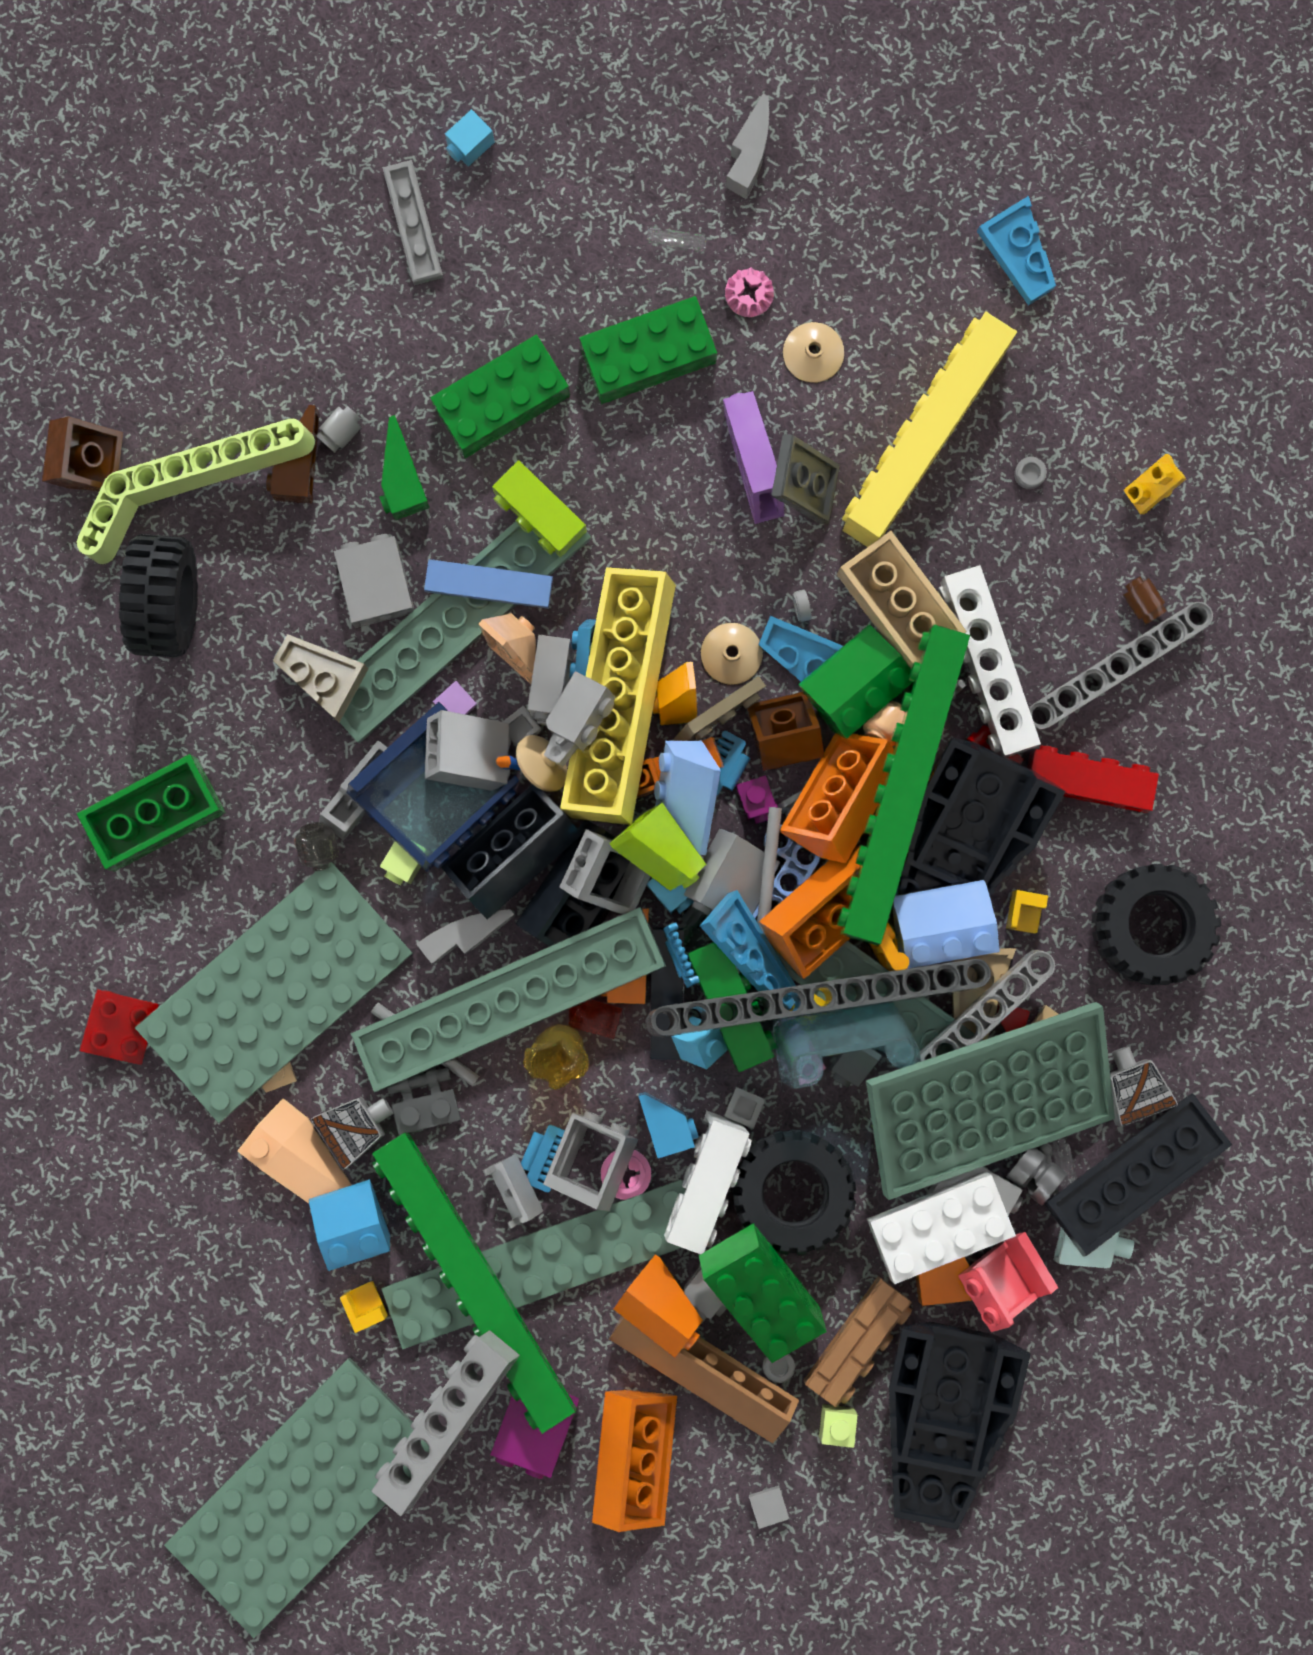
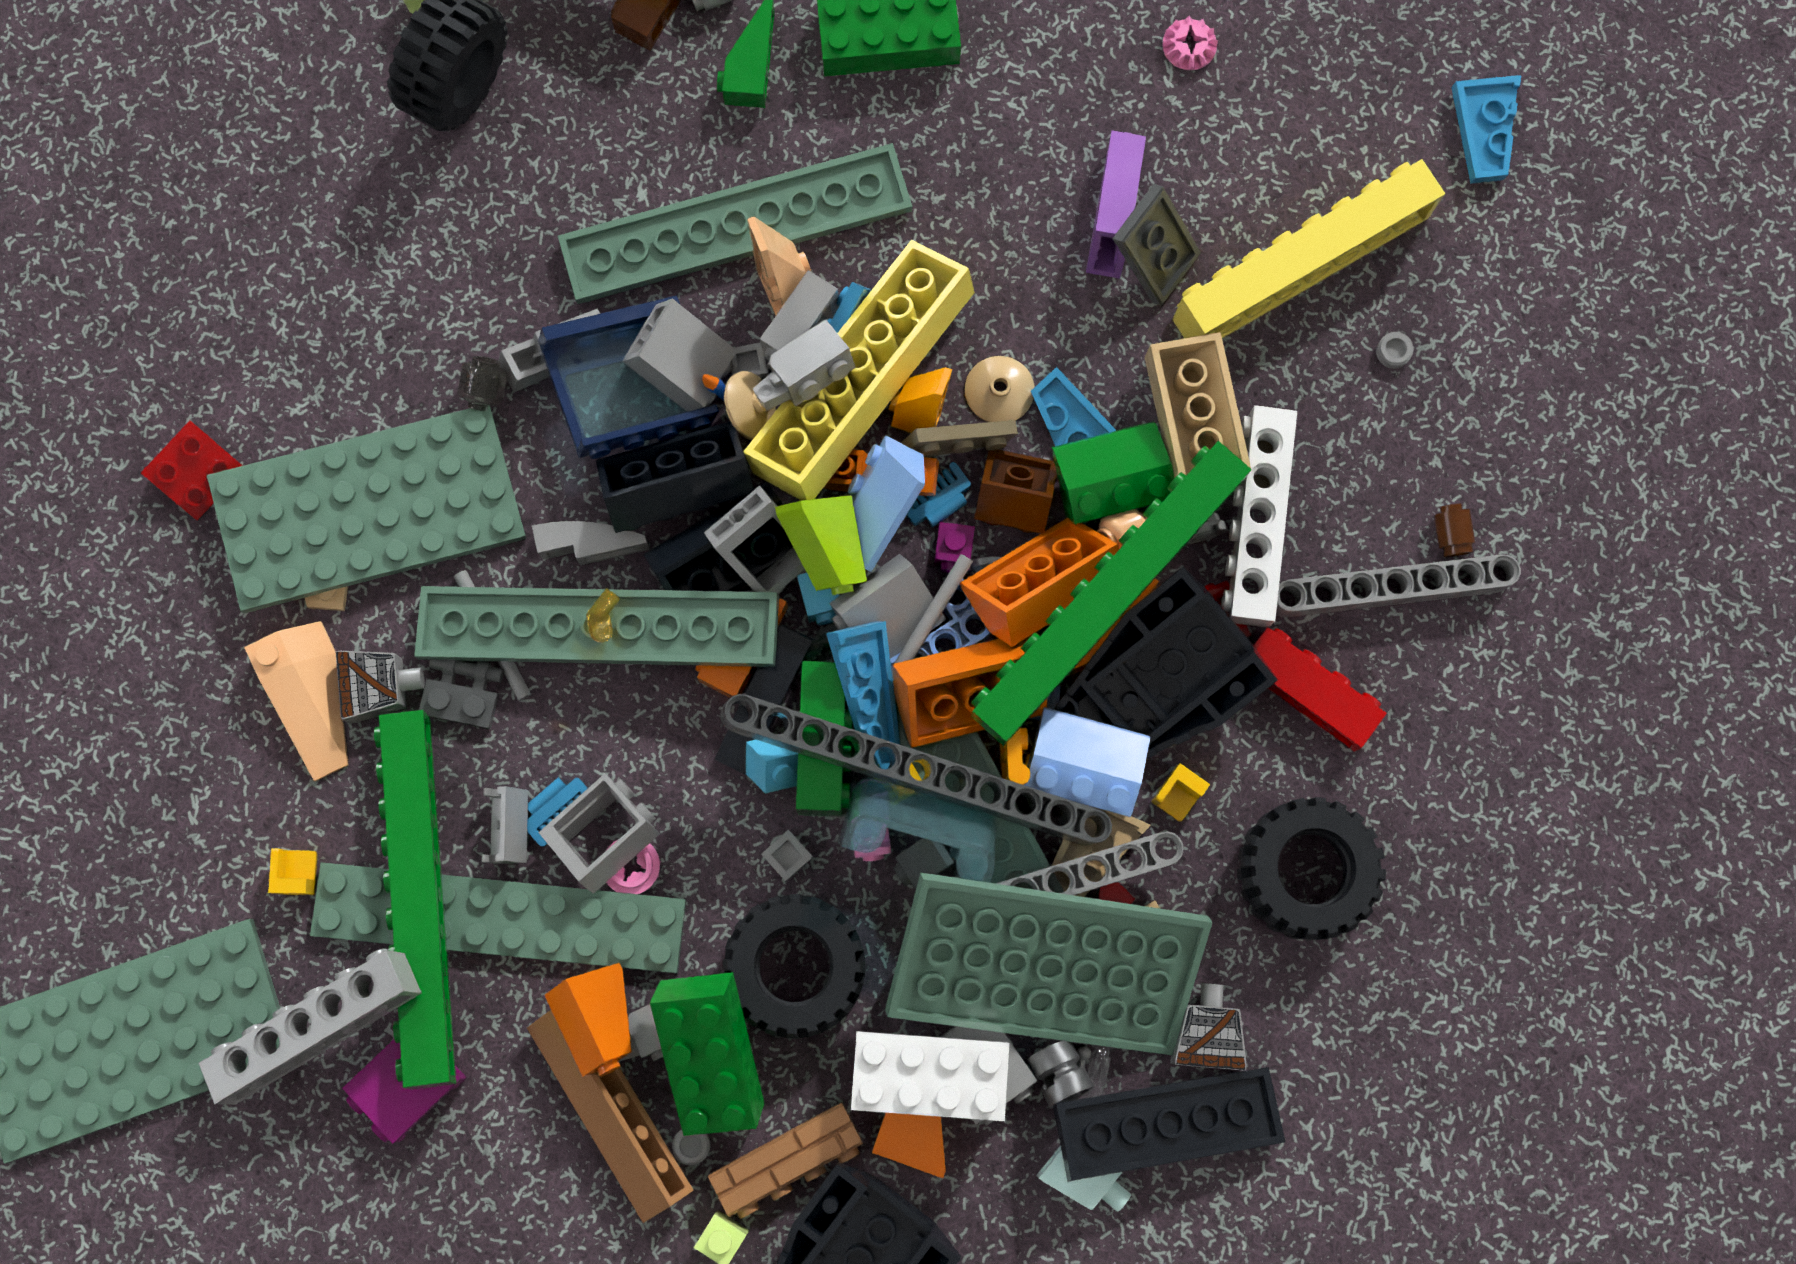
camera: 25 degrees right, 5 degrees down
(151, 813) = (334, 272): green brick -> none
(321, 673) = (573, 214): wing -> none
(349, 1225) = (320, 779): dark azure slope -> none
(374, 580) = (672, 150): light grey brick -> none
(399, 865) = (556, 441): yellowish green brick -> none
(456, 699) = (698, 304): lavender tile -> none
(488, 584) = (785, 204): medium blue tile -> none
(508, 994) = (599, 618): none -> clear yellow arm
(538, 510) = (870, 153): lime brick -> none
(552, 1046) = (606, 705): clear yellow hair -> none
(595, 1018) = (678, 689): clear red bracket -> none
(634, 1460) = (490, 1170): orange slope -> none
(648, 350) = (1059, 51): green brick -> none
(667, 1126) = (694, 833): dark azure slope -> none
(678, 956) = (792, 661): dark azure piece -> none
(707, 1183) = (707, 912): white wedge -> none
(801, 605) = (1094, 373): light grey tile -> none
(811, 366) = (1225, 145): tan dish -> none
(1007, 1281) = (974, 1170): coral panel -> none
(1154, 484) = (1519, 417): yellow hips -> none

